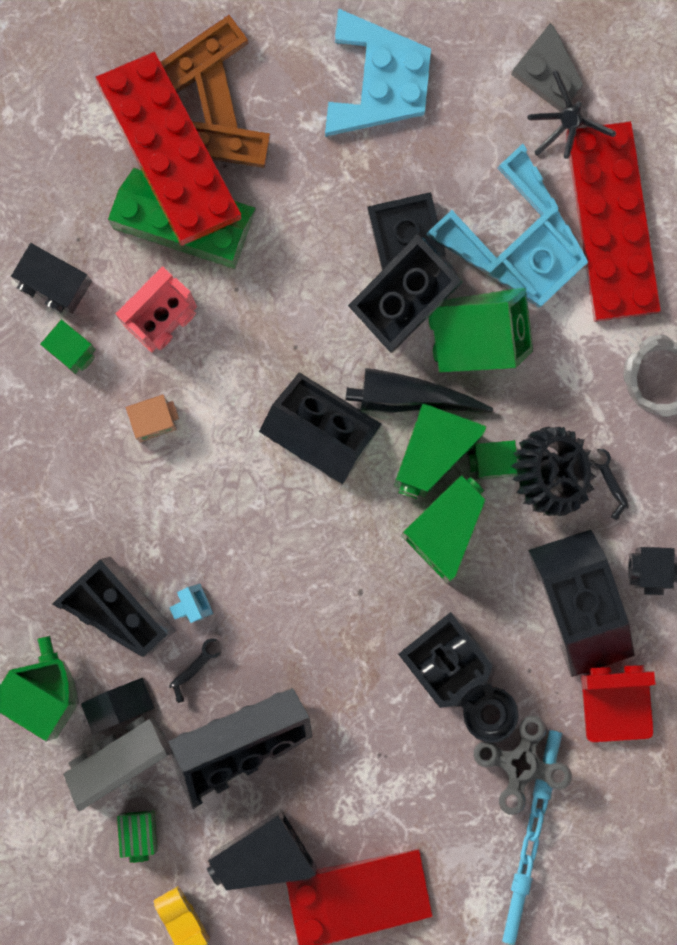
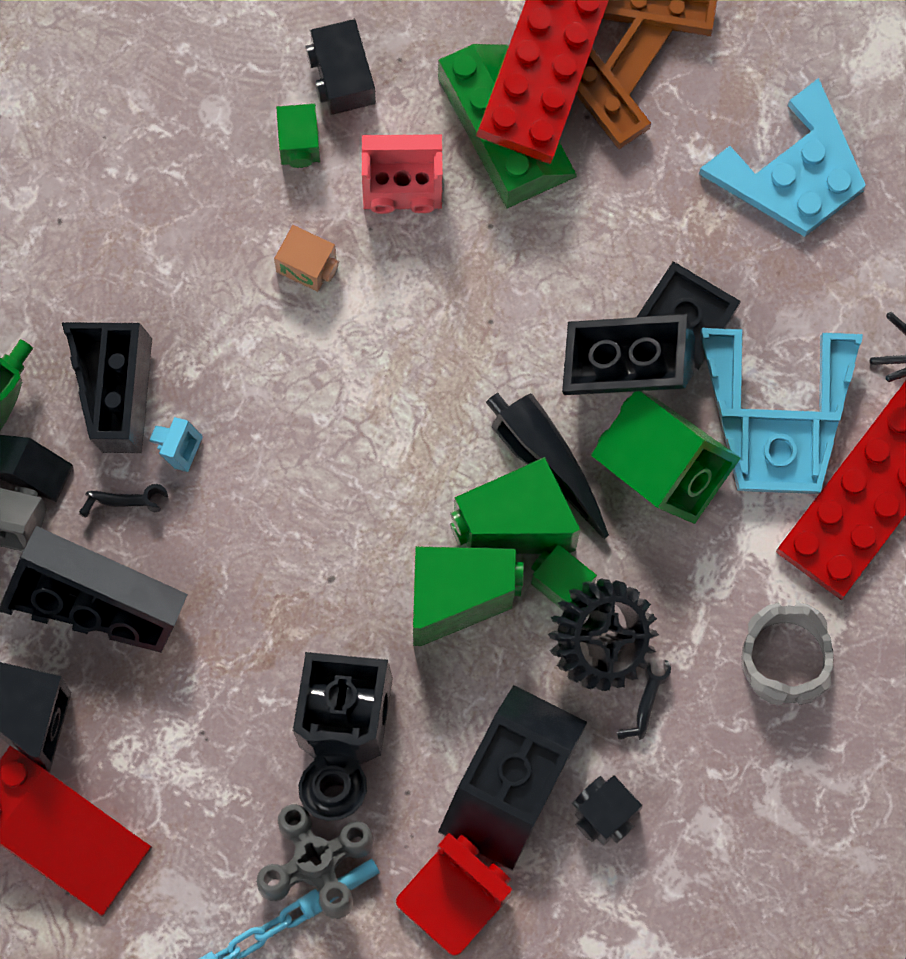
camera: 40 degrees right, 10 degrees down
(319, 427) = (440, 404): black slope -> none

